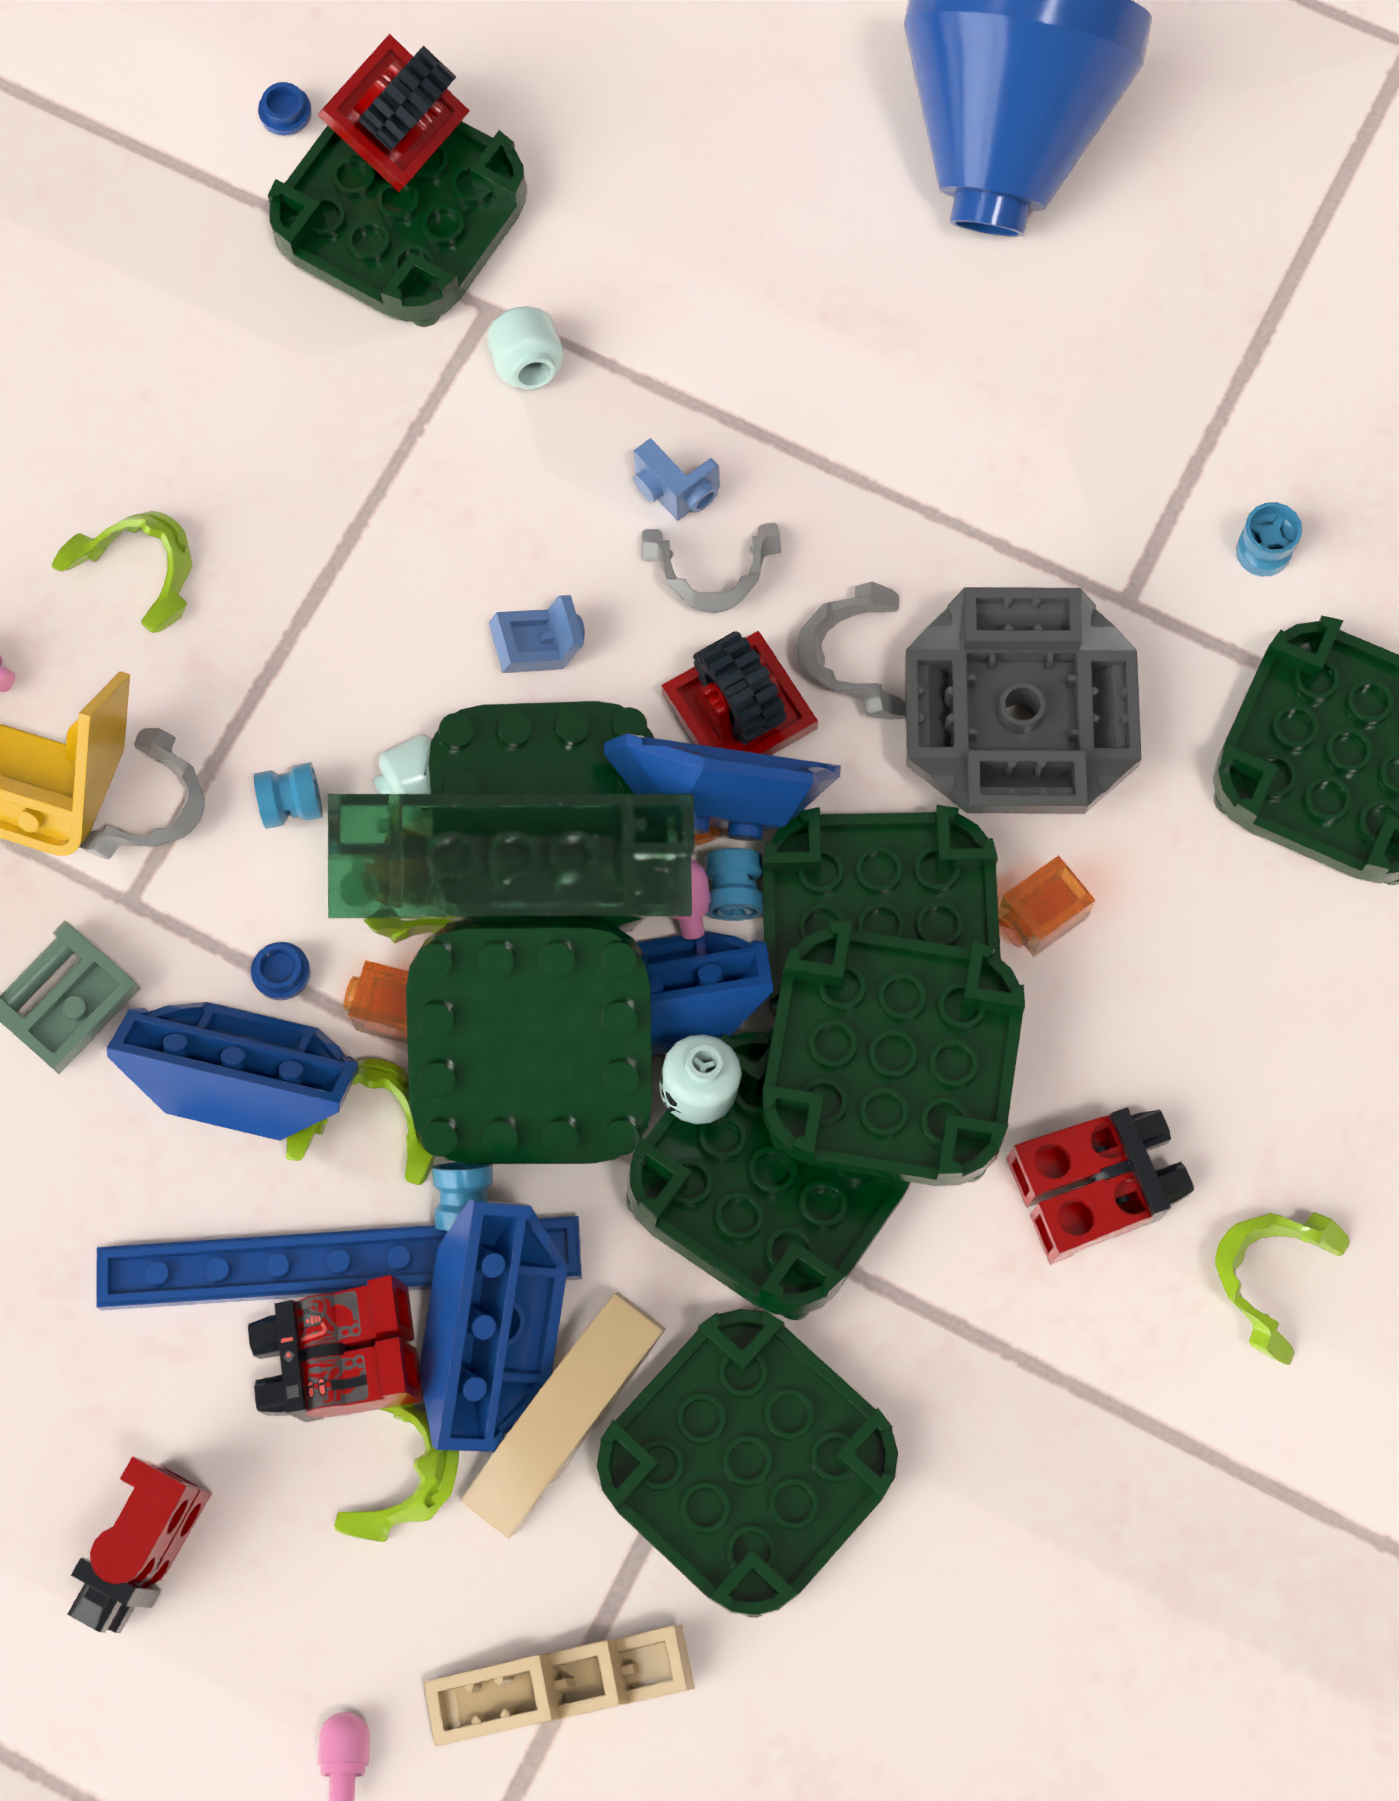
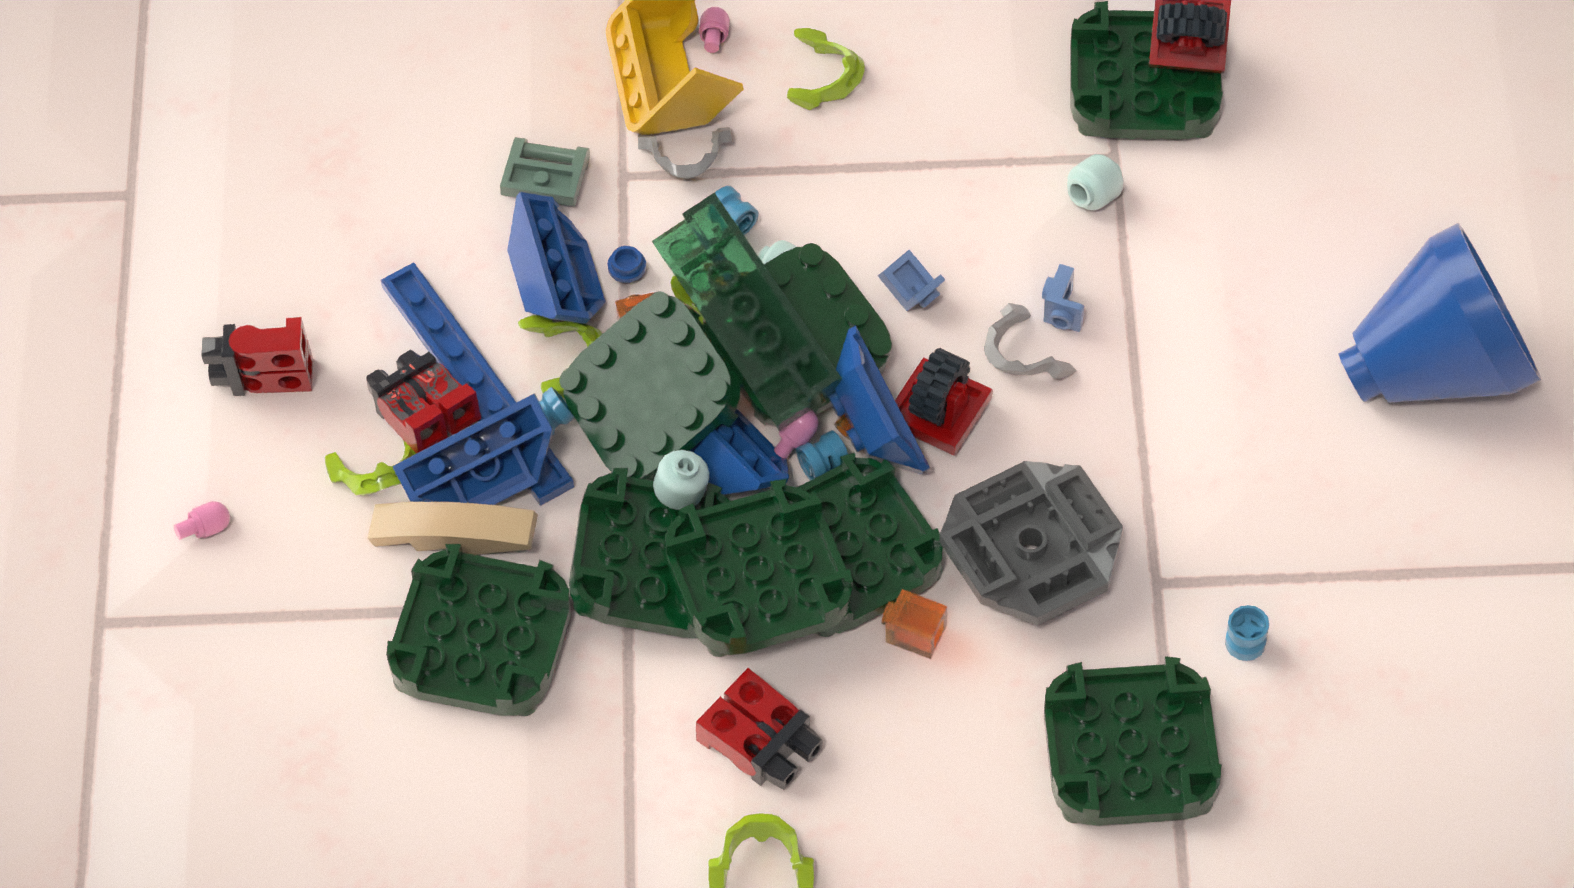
camera: 60 degrees right, 15 degrees down
(558, 1685) = (300, 603): tan slope -> none
(868, 598) = (1003, 423): light grey helmet -> none

